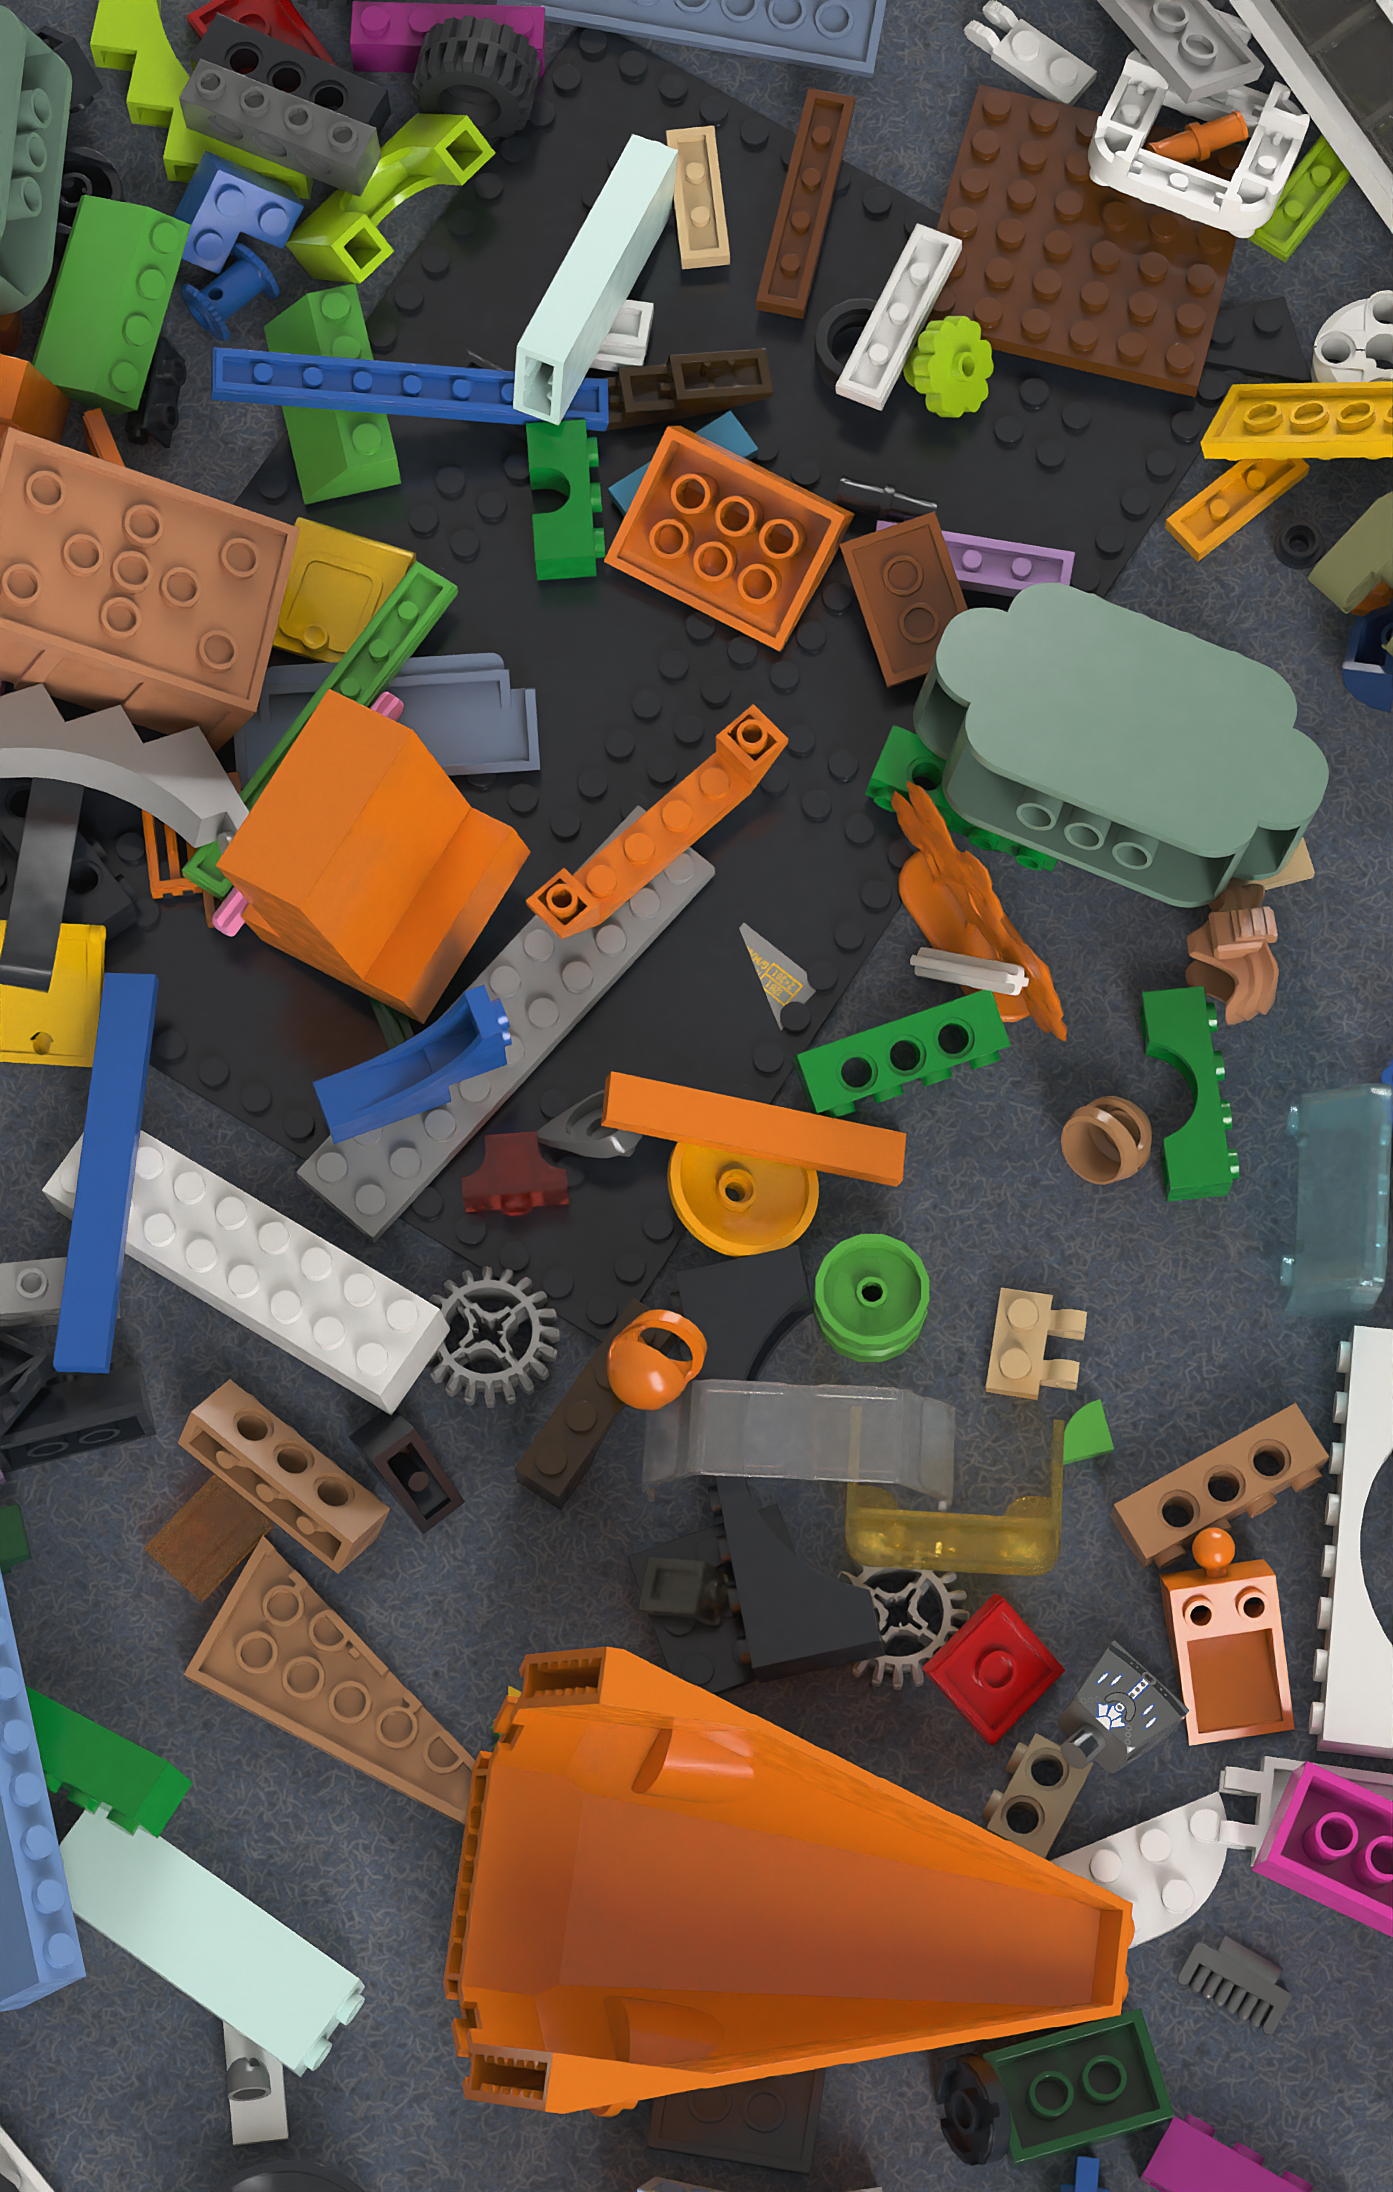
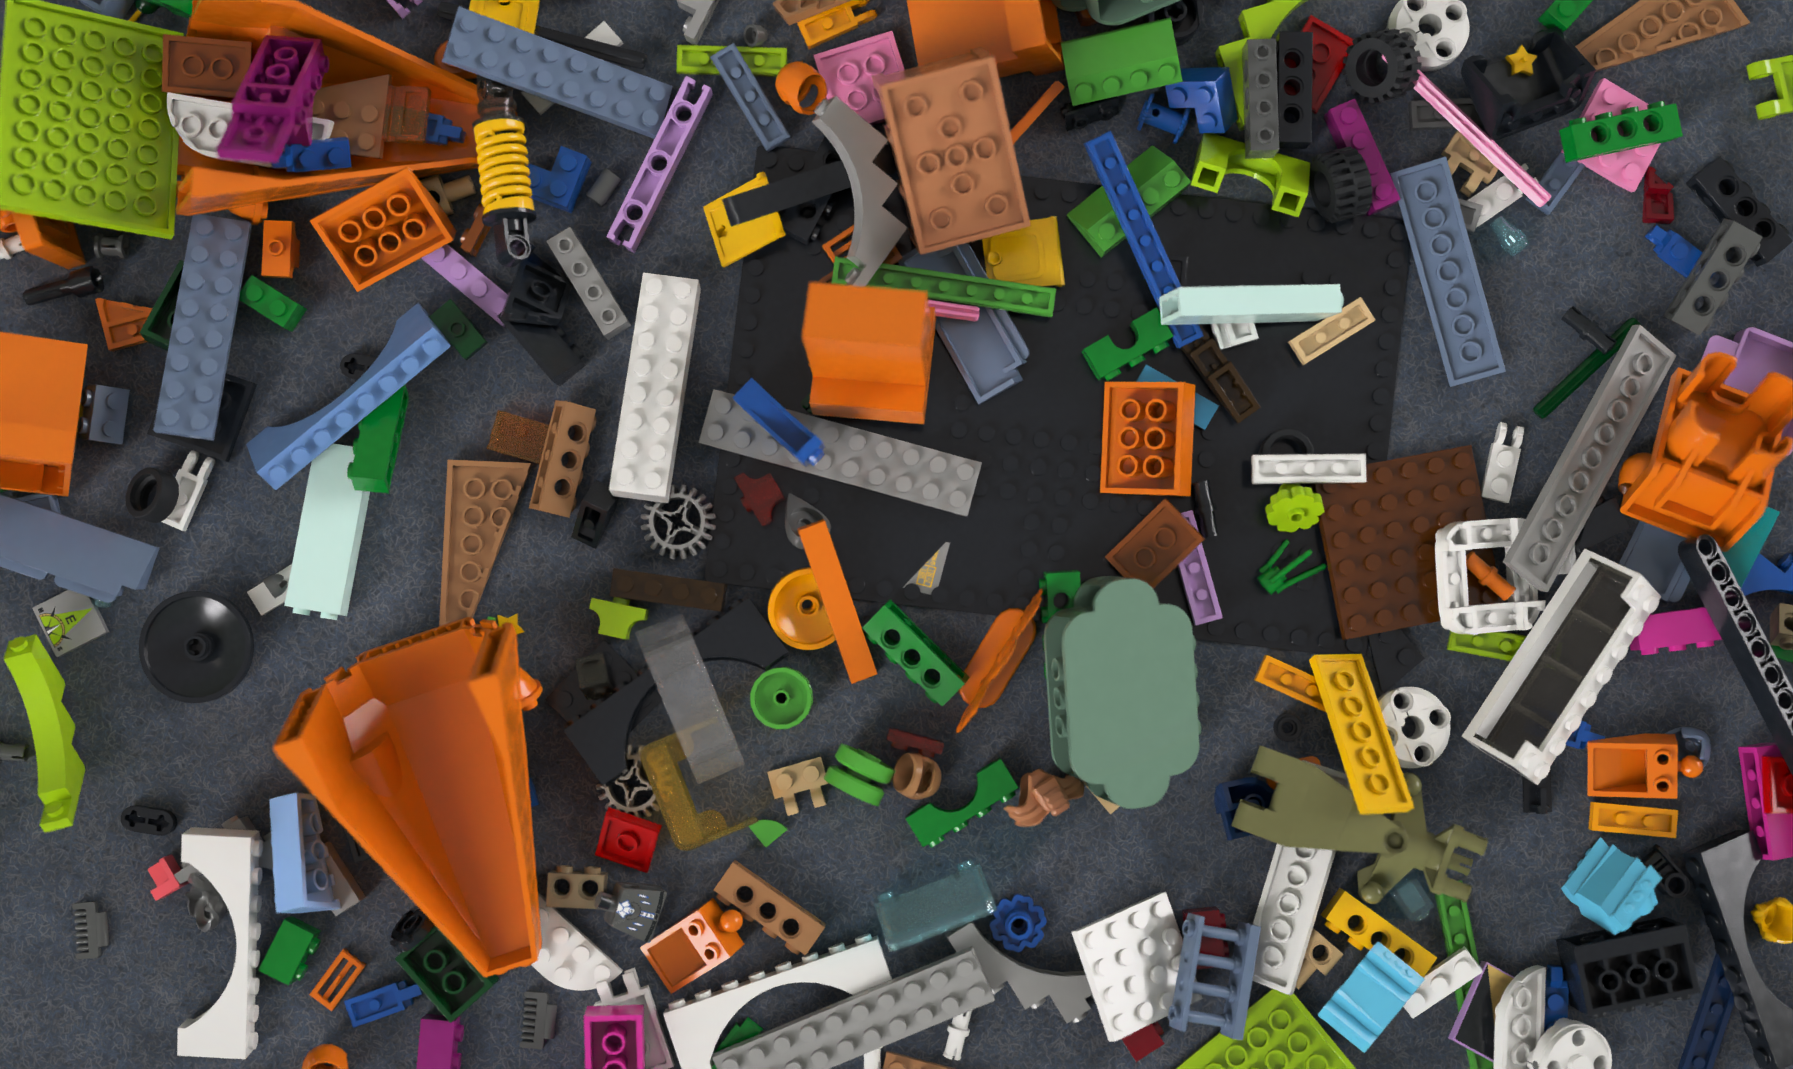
camera: 65 degrees right, 15 degrees up
(106, 1174) = (662, 300): blue tile -> none
(598, 1511) = (617, 616): none -> lime brick
(646, 1376) = (683, 612): orange helmet -> none
(665, 831) = (966, 481): orange slope -> none
(805, 203) = (1355, 388): reddish brown plate -> none
(969, 971) = (969, 669): white axle -> none
(1039, 1127) = (903, 739): none -> clear red plate
(1048, 454) = (1273, 578): none -> green plant
(1061, 1226) = (861, 771): none -> bright green wheel

